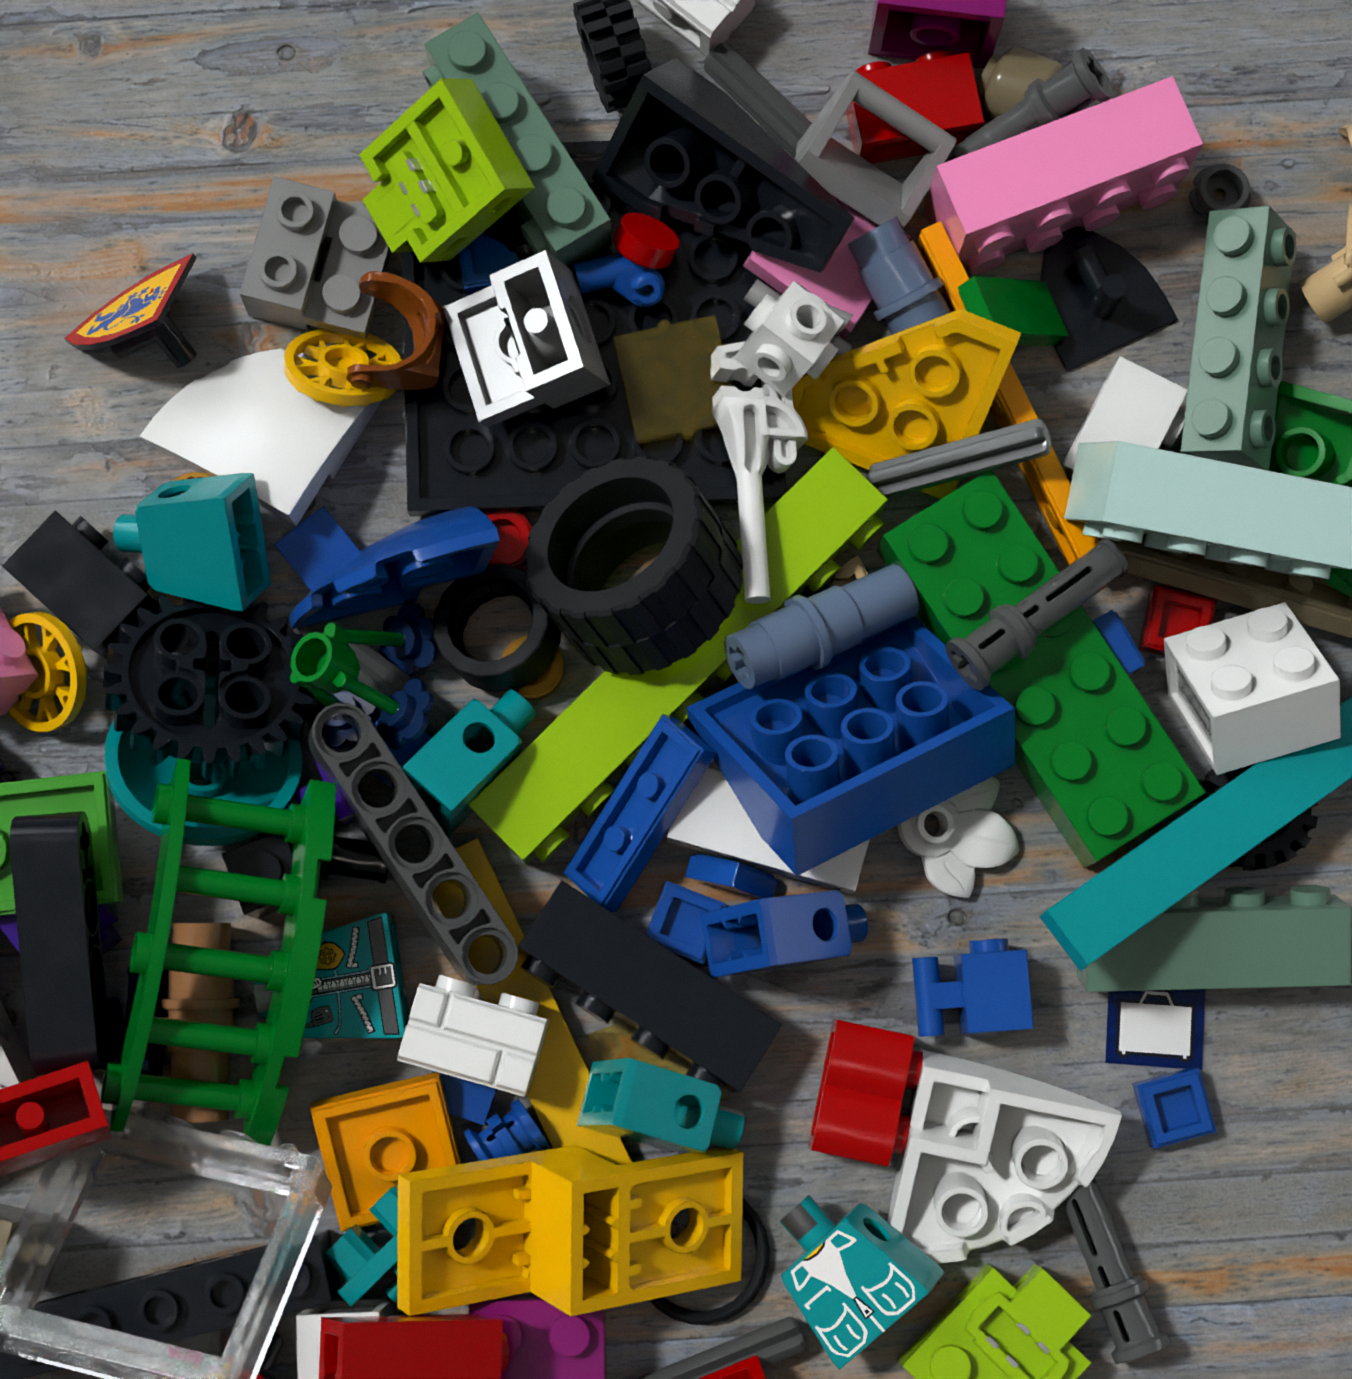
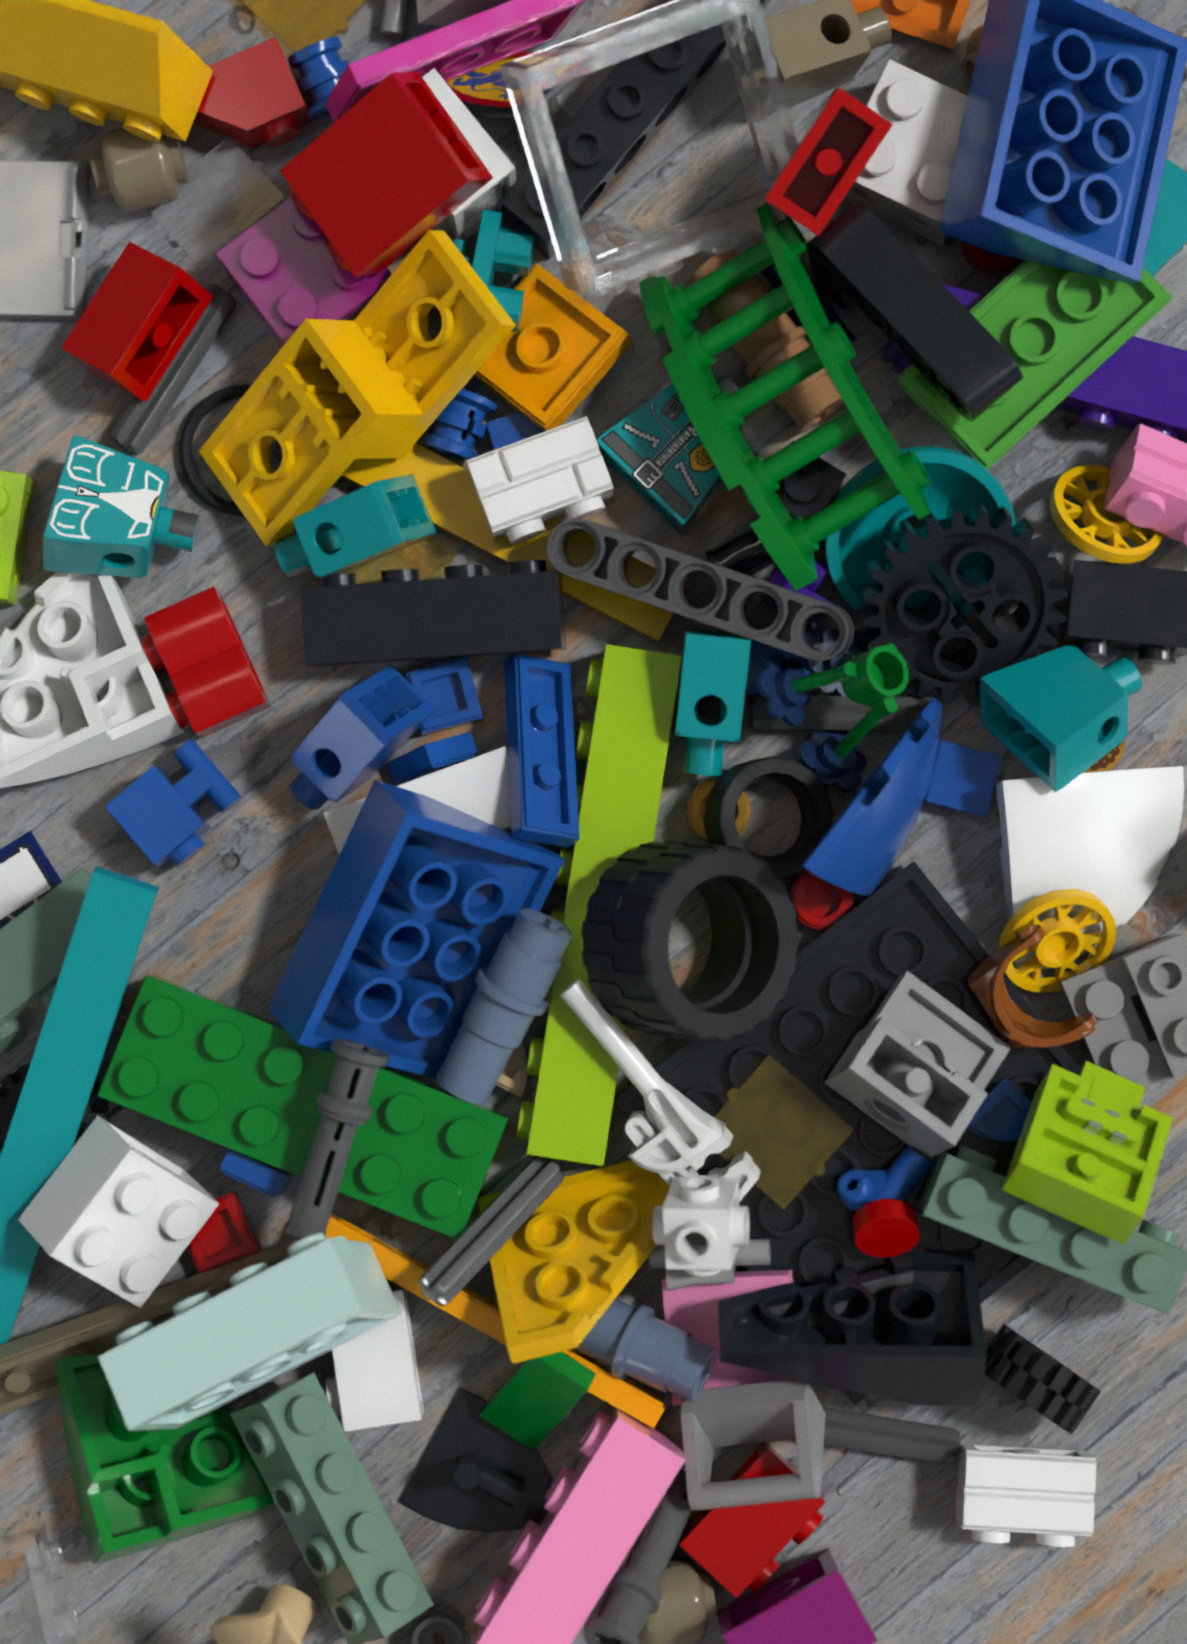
camera: 140 degrees right, 5 degrees up
(966, 839) = (265, 926): white plate -> none

